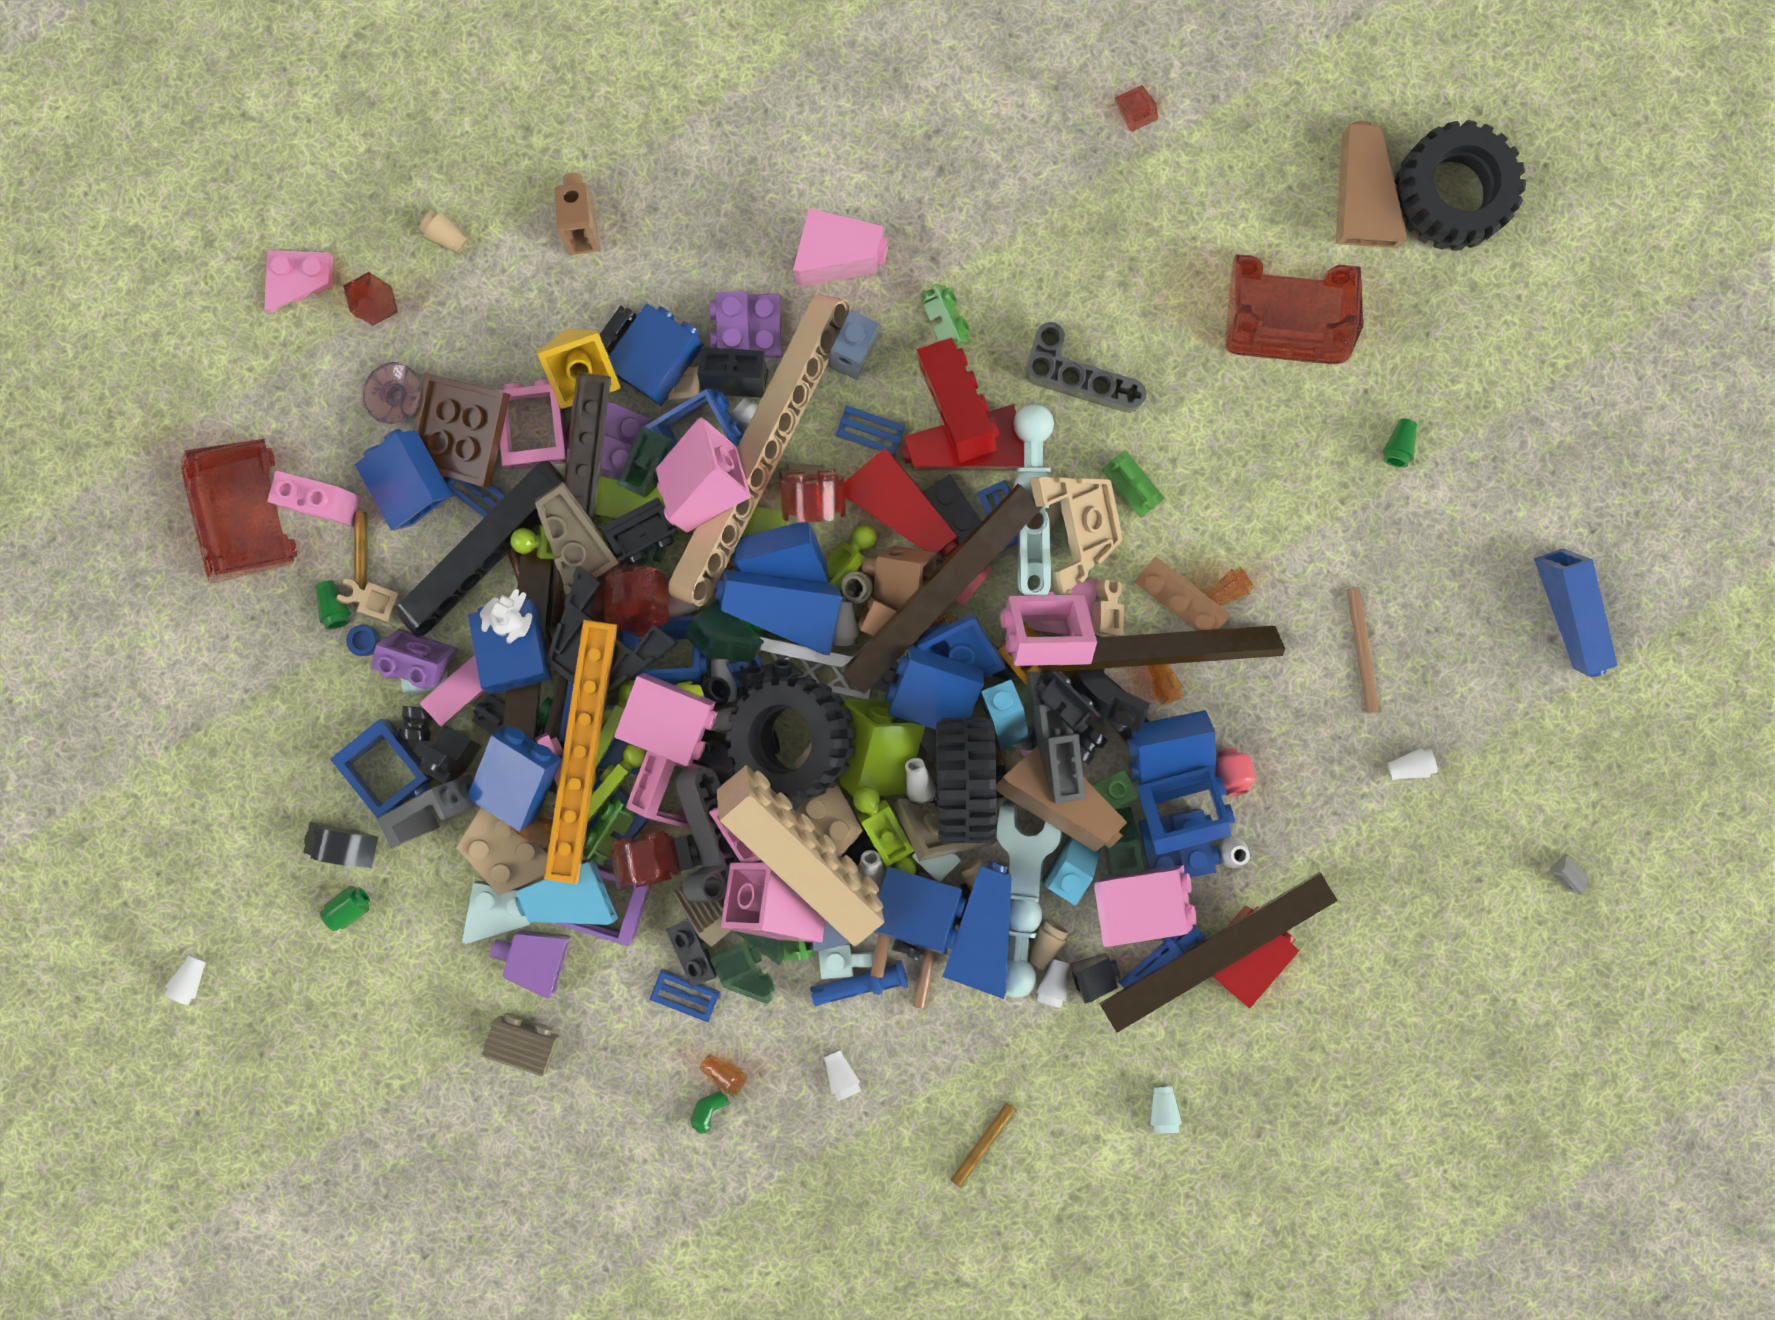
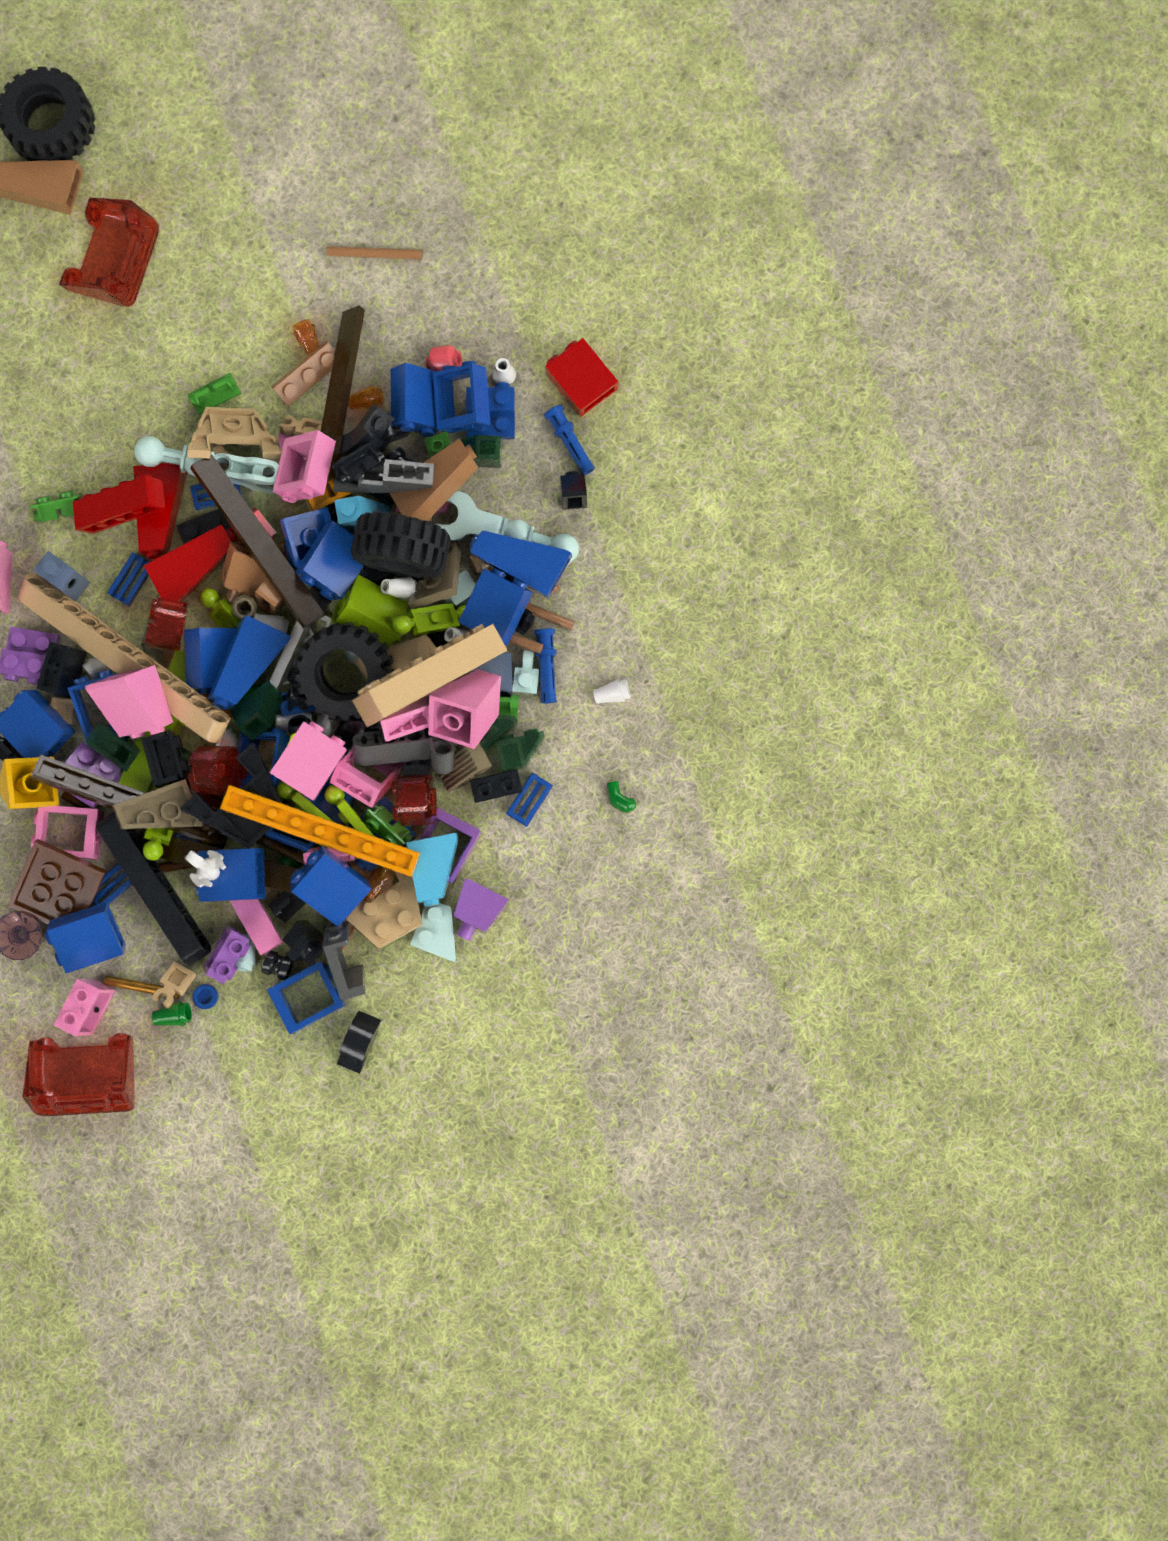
camera: 75 degrees left, 5 degrees down
(186, 980) = (440, 1184): white cone -> none
(345, 908) = (409, 1047): green brick -> none
(520, 1044) = (541, 930): dark tan brick -> none
(725, 1075) = (594, 780): clear orange cone -> none
(983, 1144) = (685, 597): pearl gold bar -> none
(1047, 944) = (543, 521): tan cone -> none
(1053, 987) = (576, 522): white cone -> none
(1072, 871) = (491, 490): medium azure slope -> none
(1086, 375) = (123, 411): dark grey beam -> none
(1144, 905) = (525, 440): bright pink slope -> none
(1164, 1113) = (685, 459): light aqua cone -> none
(1218, 952) = (571, 395): dark brown tile -> none
(1401, 444) = (228, 195): green cone -> none
(1415, 764) = (465, 230): white cone -> none
(1570, 875) = (570, 139): light grey slope -> none
(1578, 610) = (376, 94): blue slope -> none

